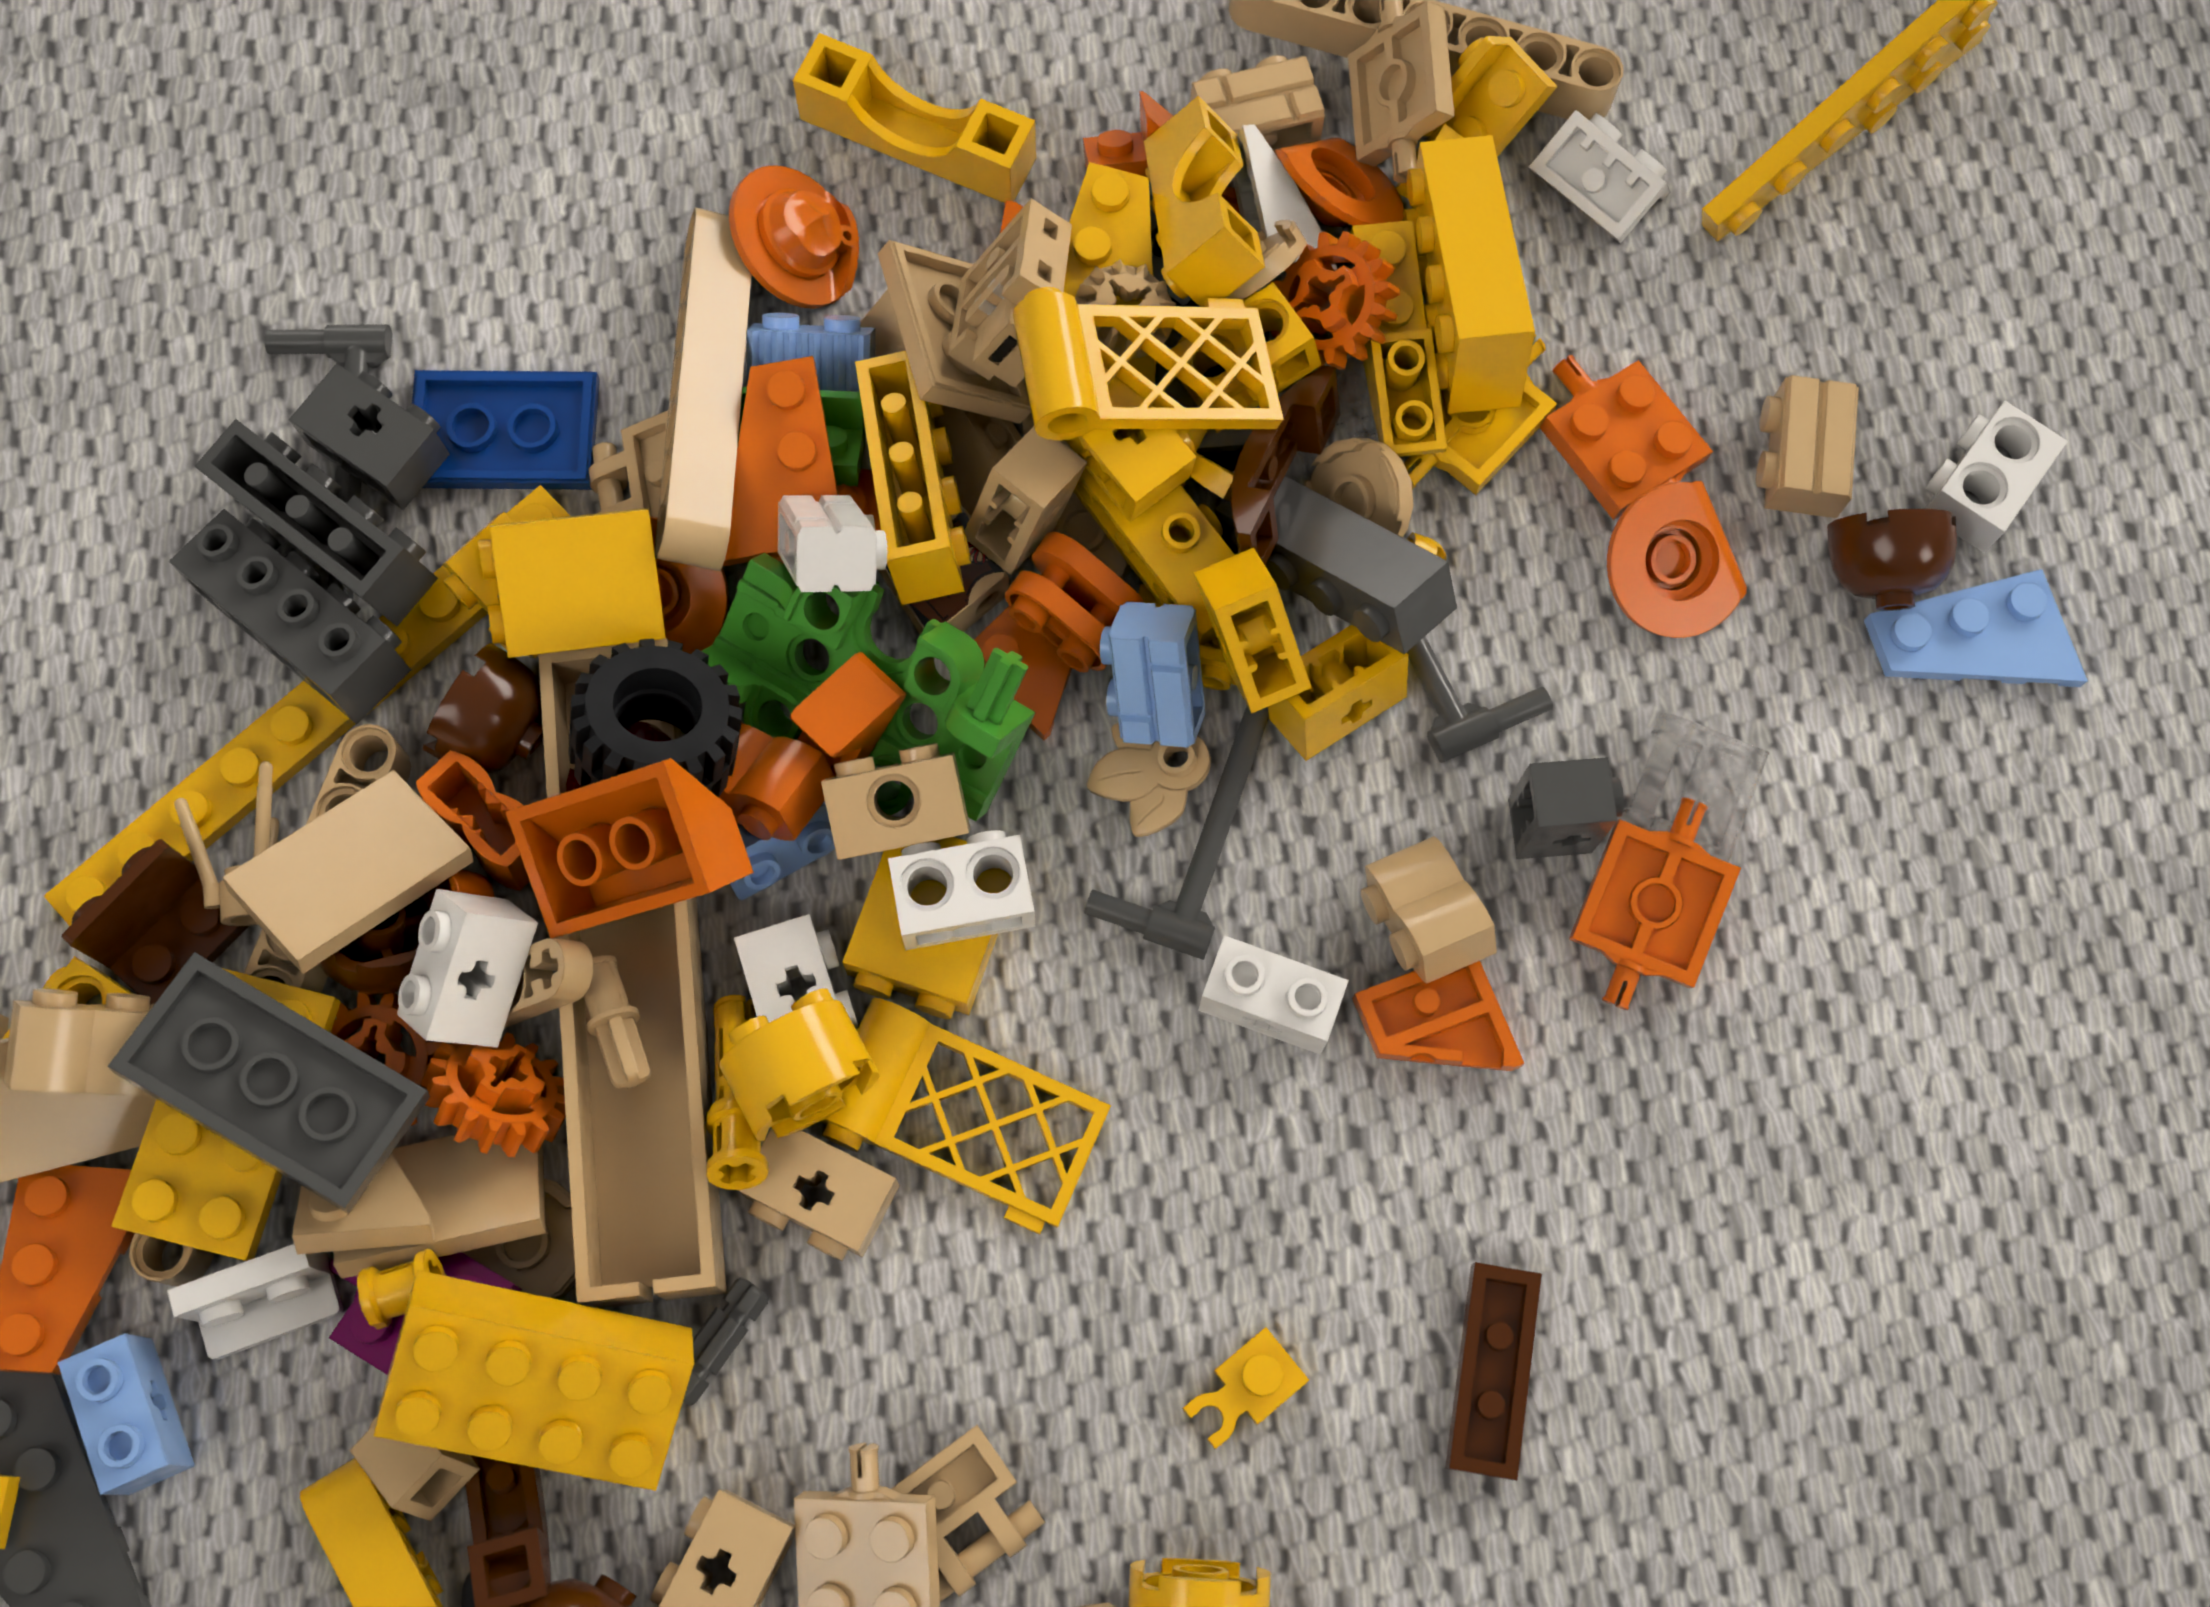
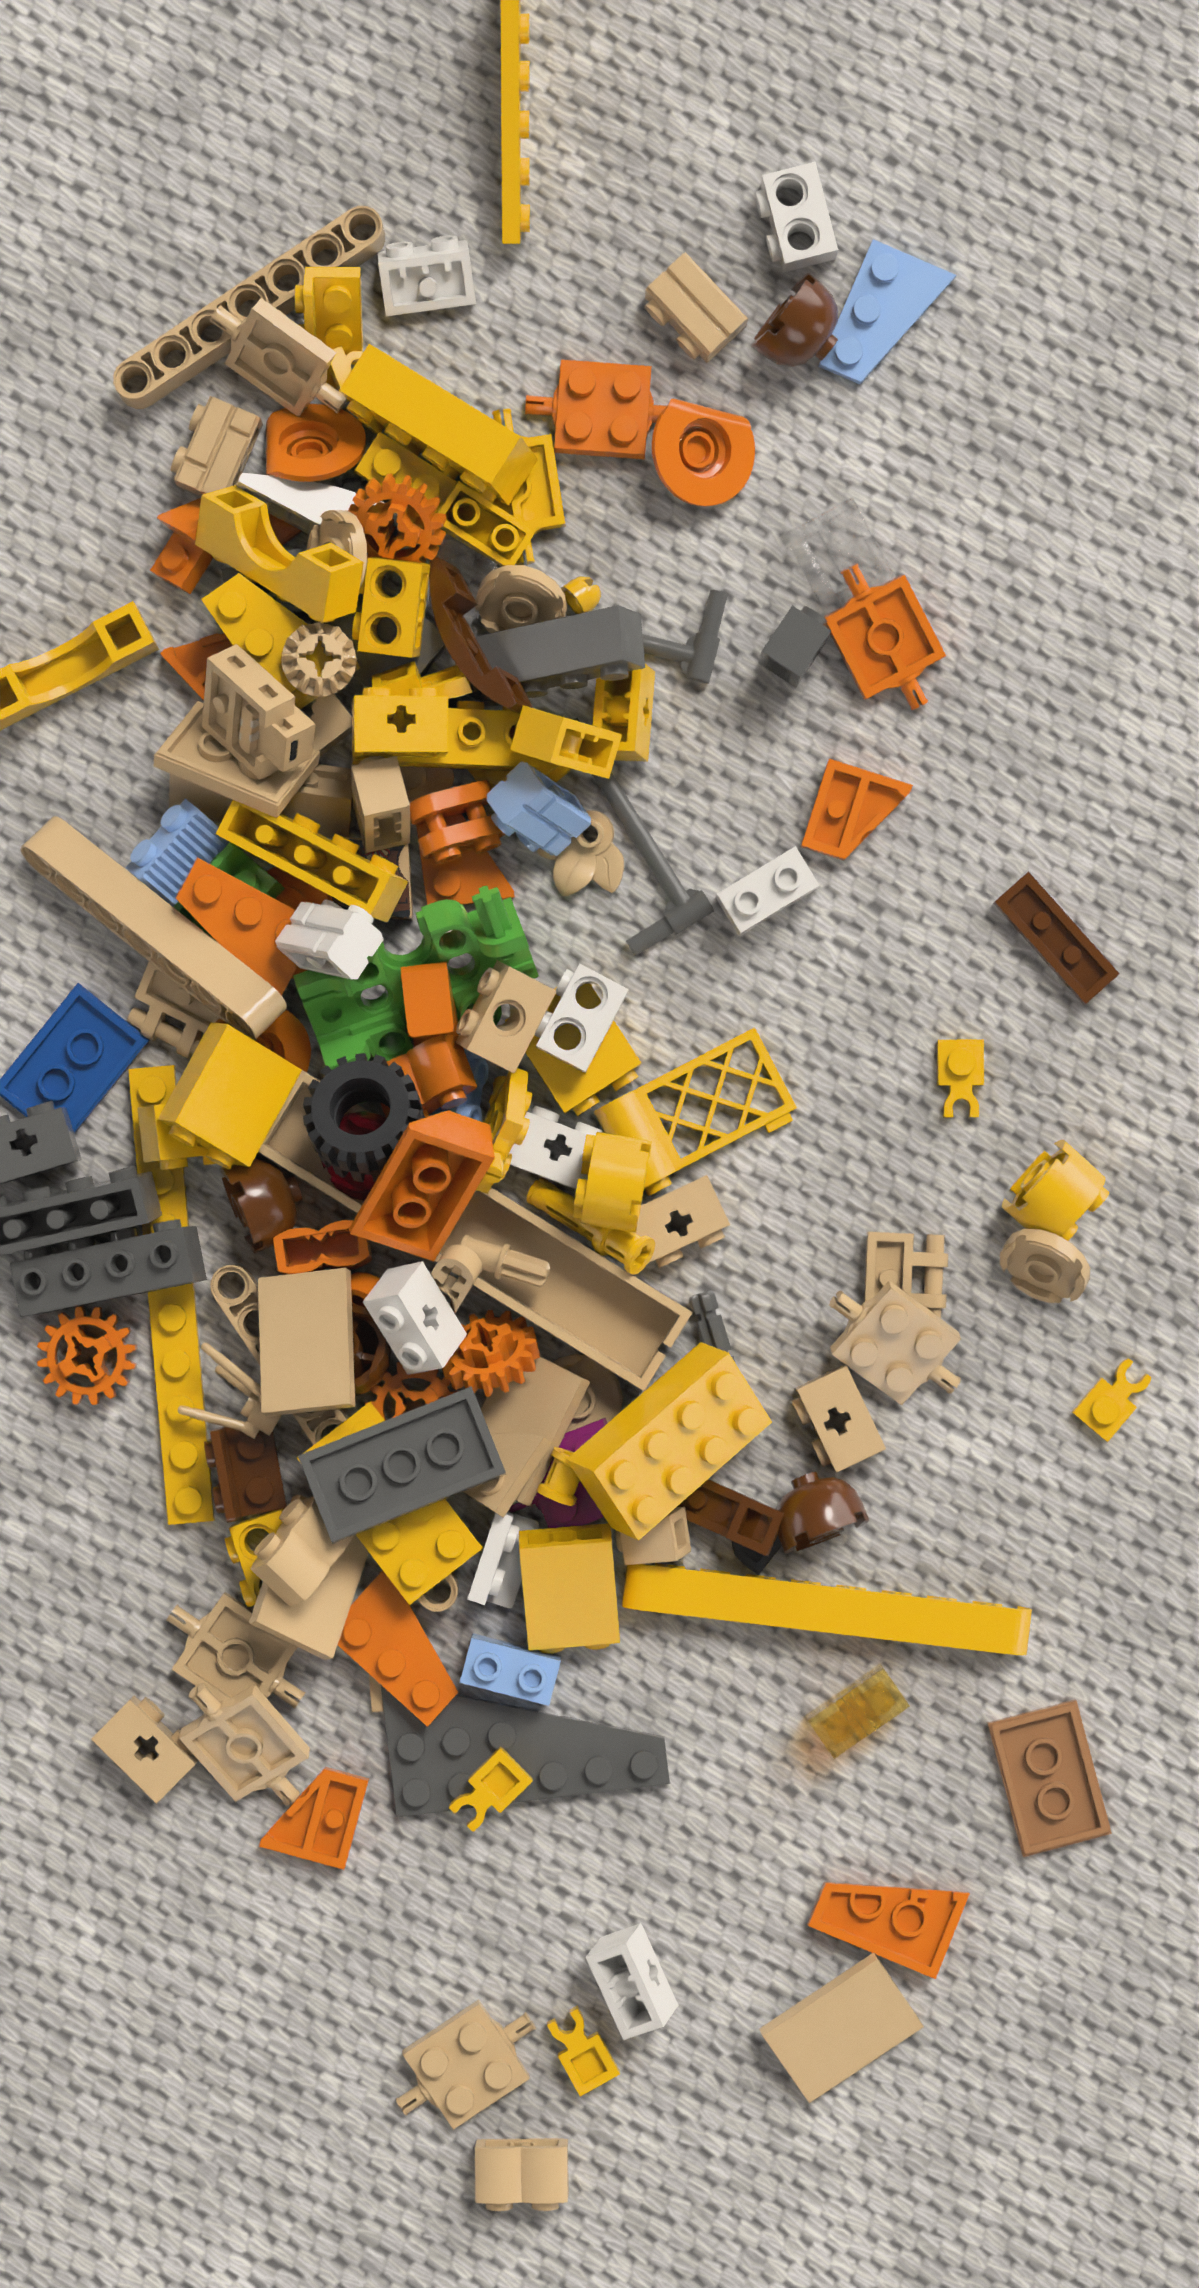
camera: 55 degrees left, 15 degrees up
(179, 694) = (99, 1374): none -> orange gear
(274, 1405) = (569, 1587): none -> yellow brick
(761, 903) = (507, 1122): none -> yellow plate
(794, 236) = (83, 798): orange hat -> none
(1067, 364) = (354, 734): yellow piece -> none
(1429, 910) = (789, 766): tan brick -> none

